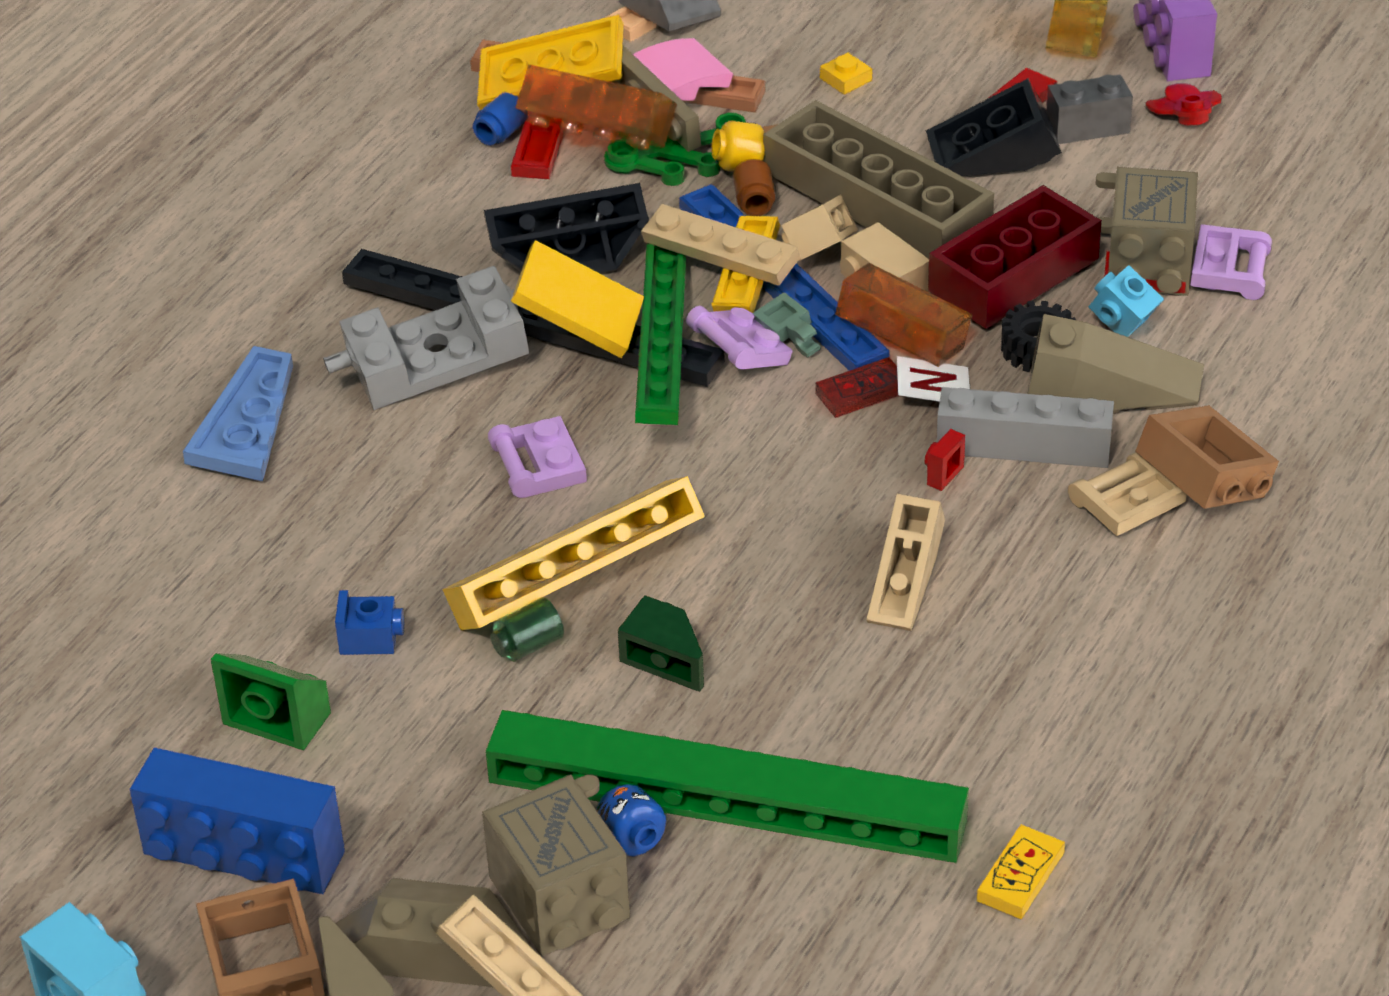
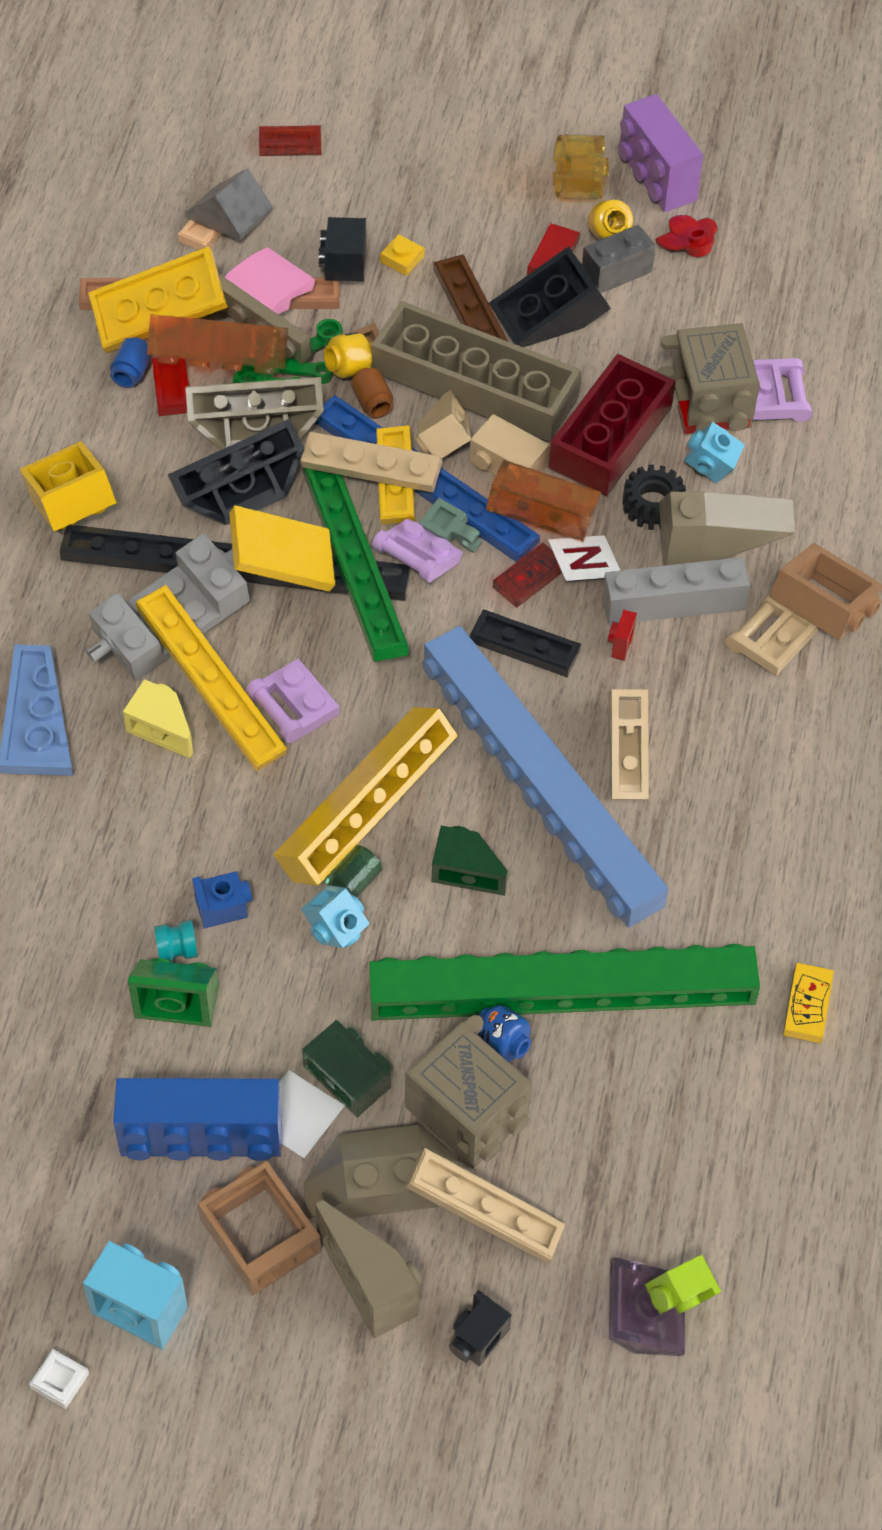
camera: 20 degrees left, 15 degrees up
(299, 653) = (176, 941): none -> teal wheel
(370, 856) = (305, 1113): none -> white sticker
(375, 211) = (68, 486): none -> yellow brick
(376, 441) = (158, 718): none -> light yellow slope
(435, 816) = (347, 1067): none -> clear green brick
(452, 414) = (211, 678): none -> yellow tile
(486, 664) = (335, 917): none -> medium azure brick
(584, 166) = (243, 409): none -> dark tan wedge
(778, 53) = (343, 249): none -> black brick
(793, 584) = (545, 778): none -> medium blue brick
(829, 451) = (525, 643): none -> black tile
(902, 115) = (466, 295): none -> reddish brown tile
(1093, 58) = (619, 218): none -> yellow head

